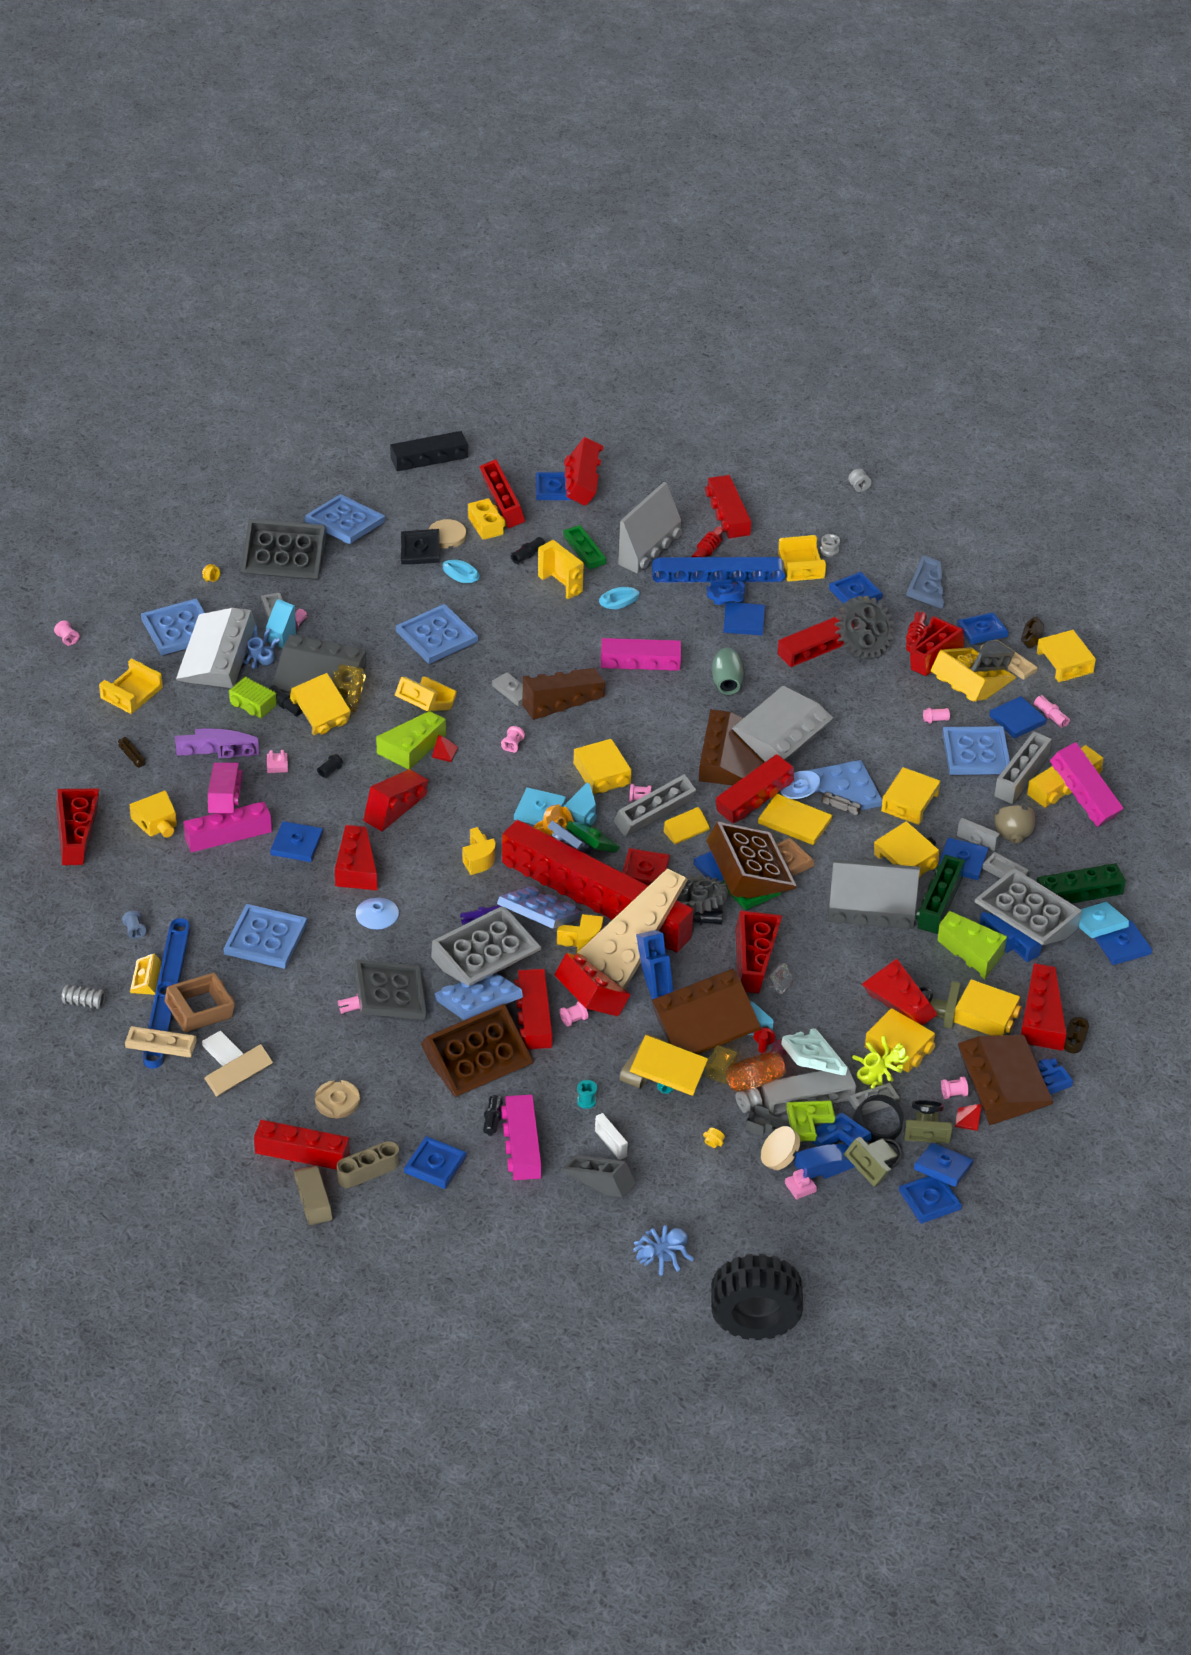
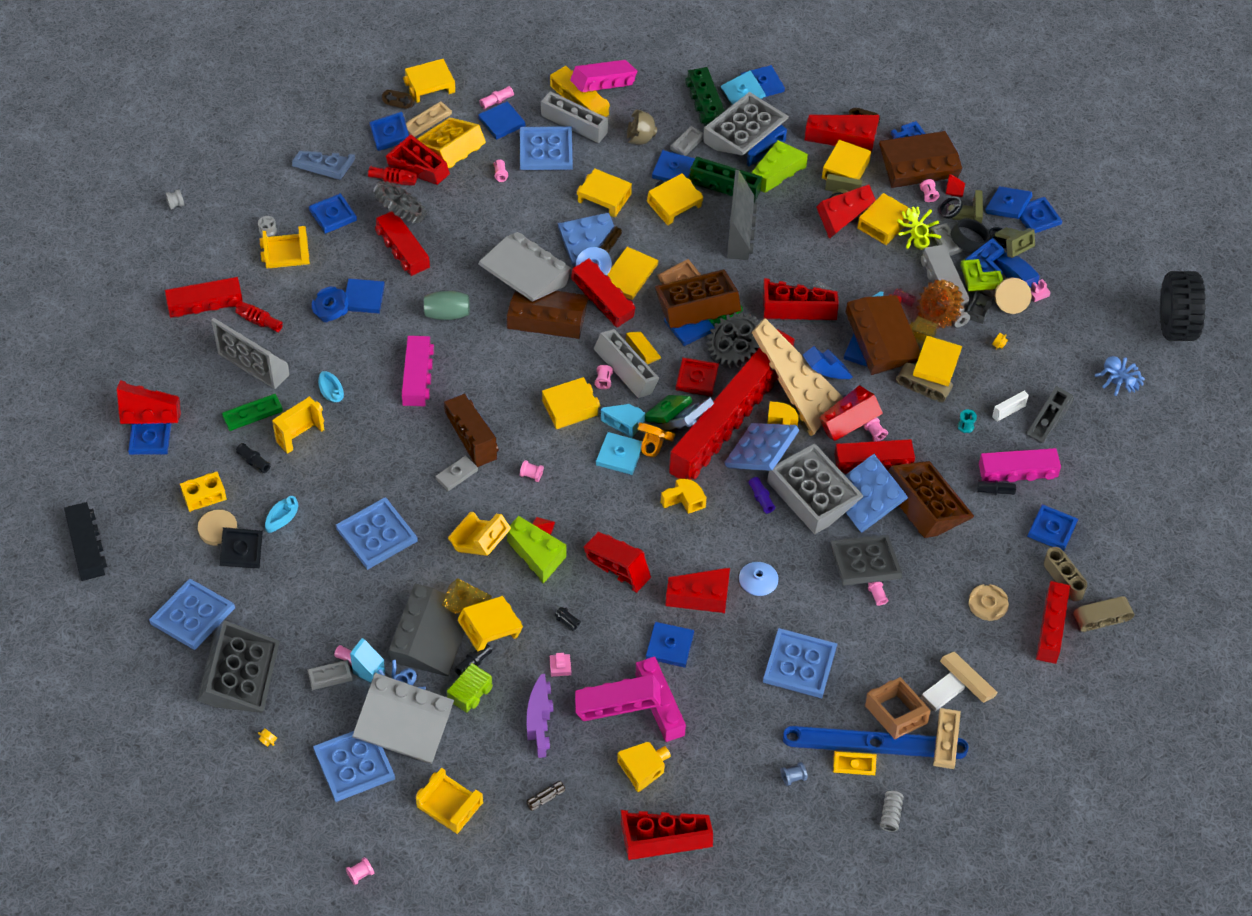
camera: 90 degrees left, 10 degrees up
(502, 493) = (168, 474): red brick -> none
(716, 568) = (296, 310): blue beam -> none
(813, 1052) = (912, 268): light aqua wing -> none
(978, 834) = (650, 154): light grey plate -> none
(993, 657) = (441, 122): dark grey slope -> none

